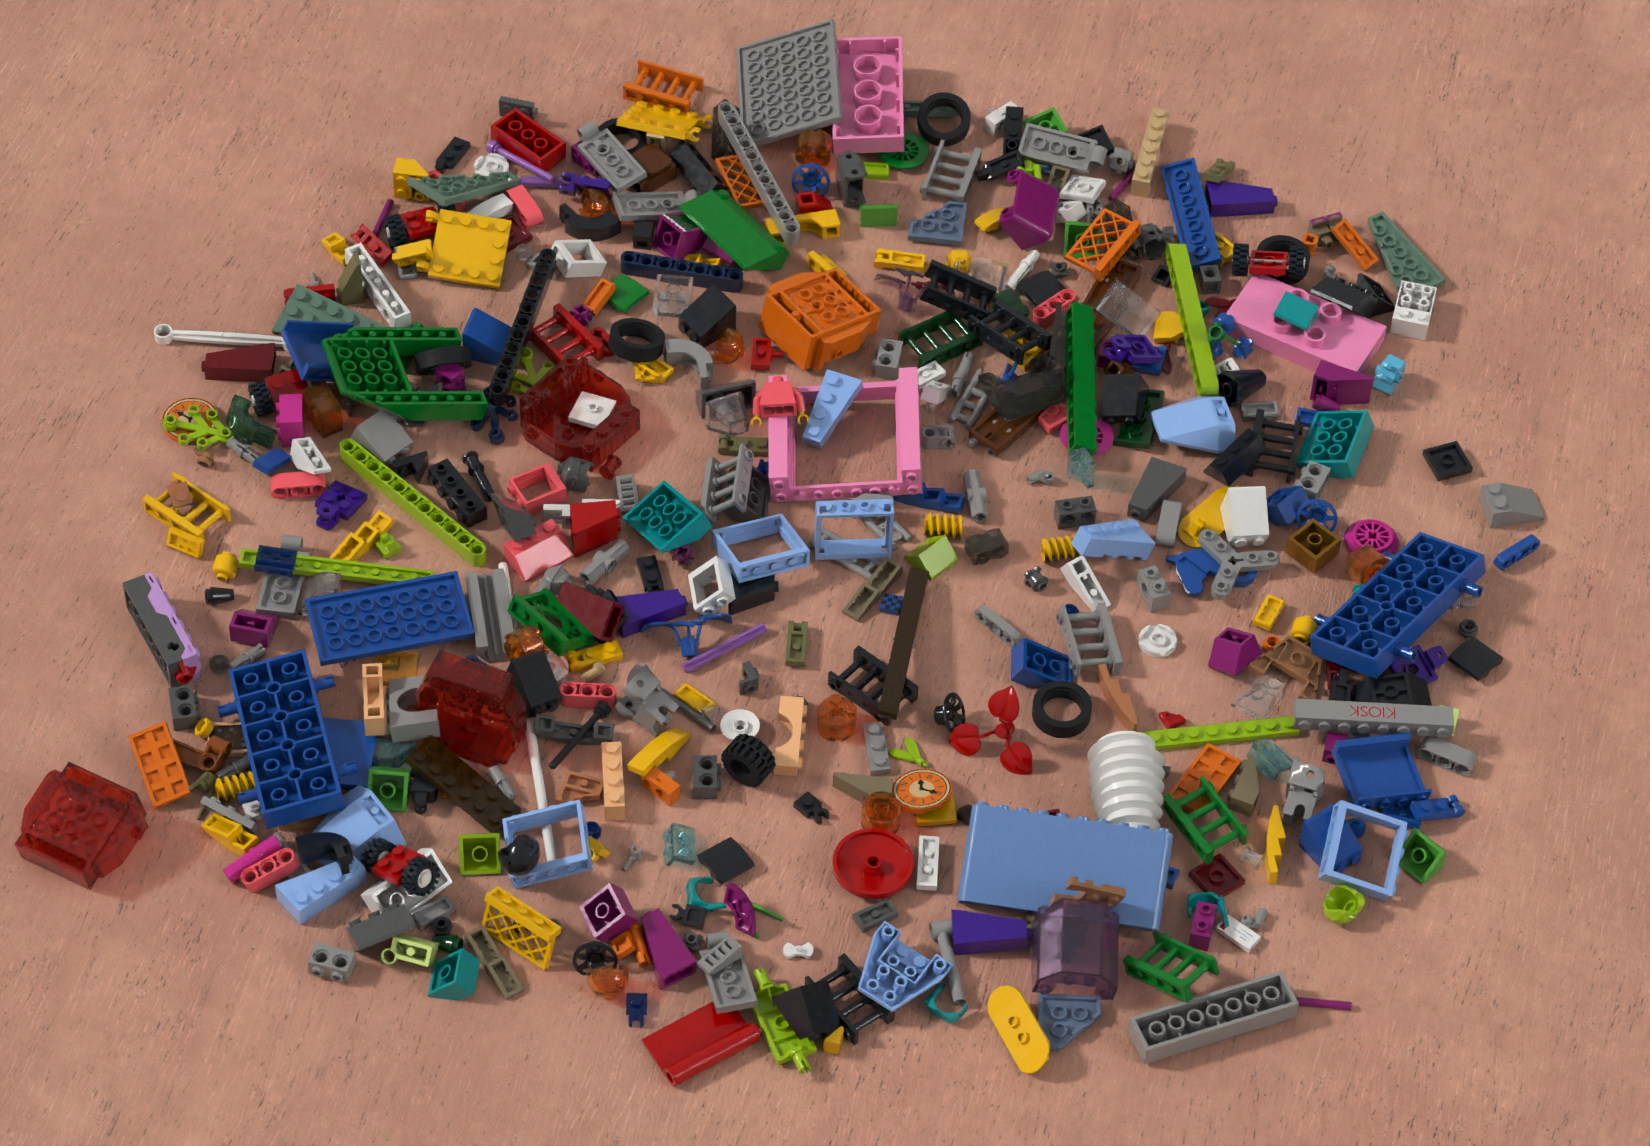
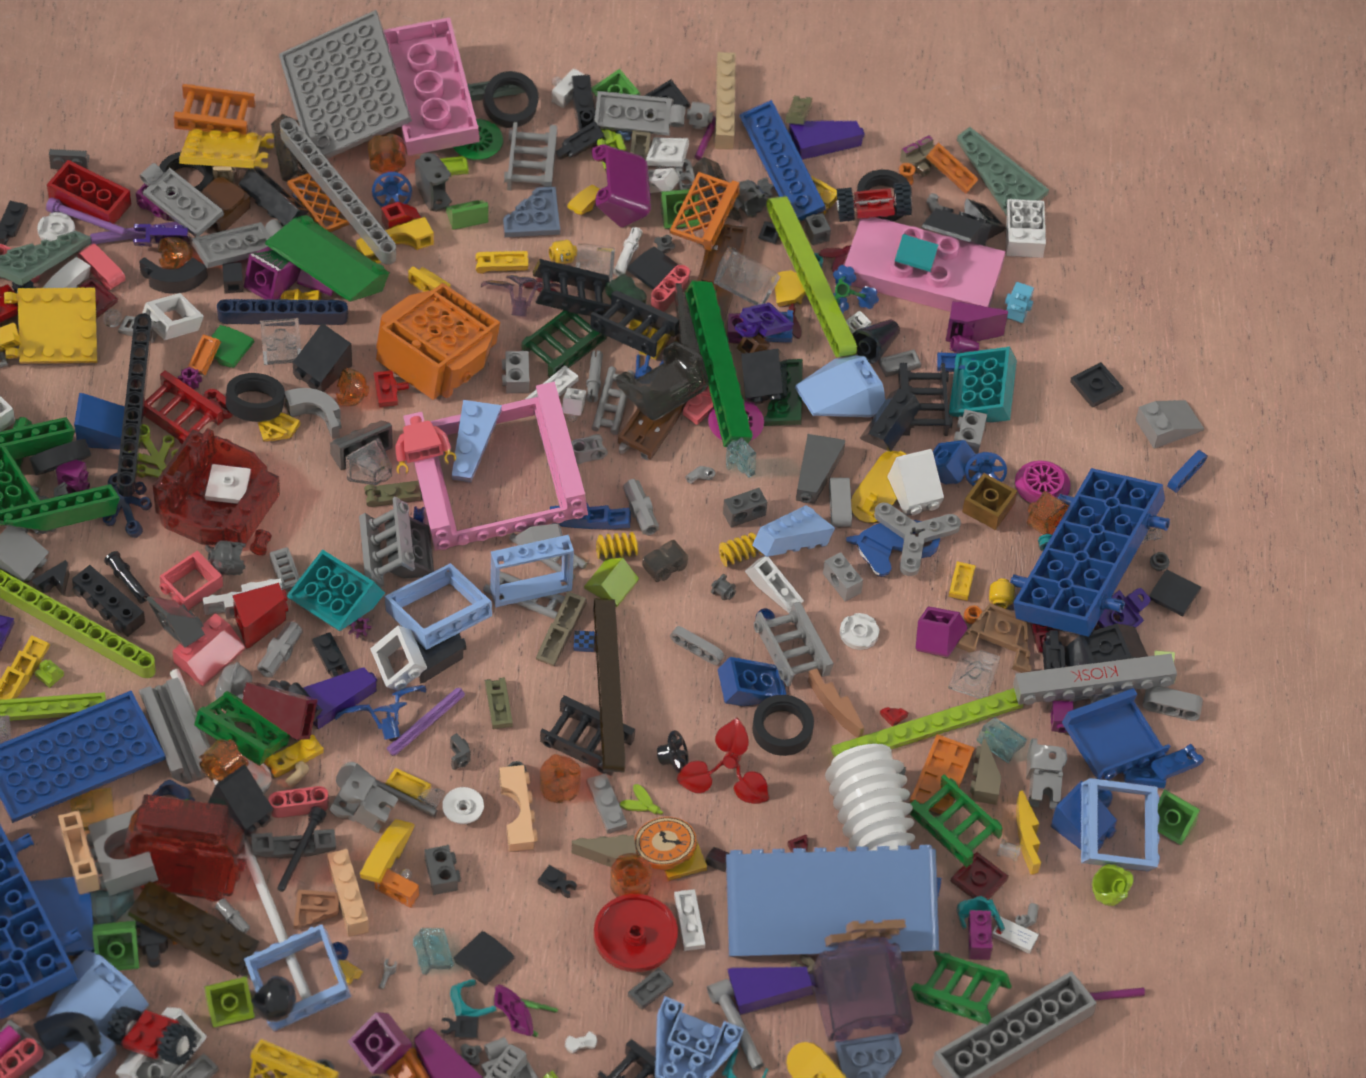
camera: 15 degrees left, 5 degrees up
(748, 760) = (483, 844): black tyre -> none

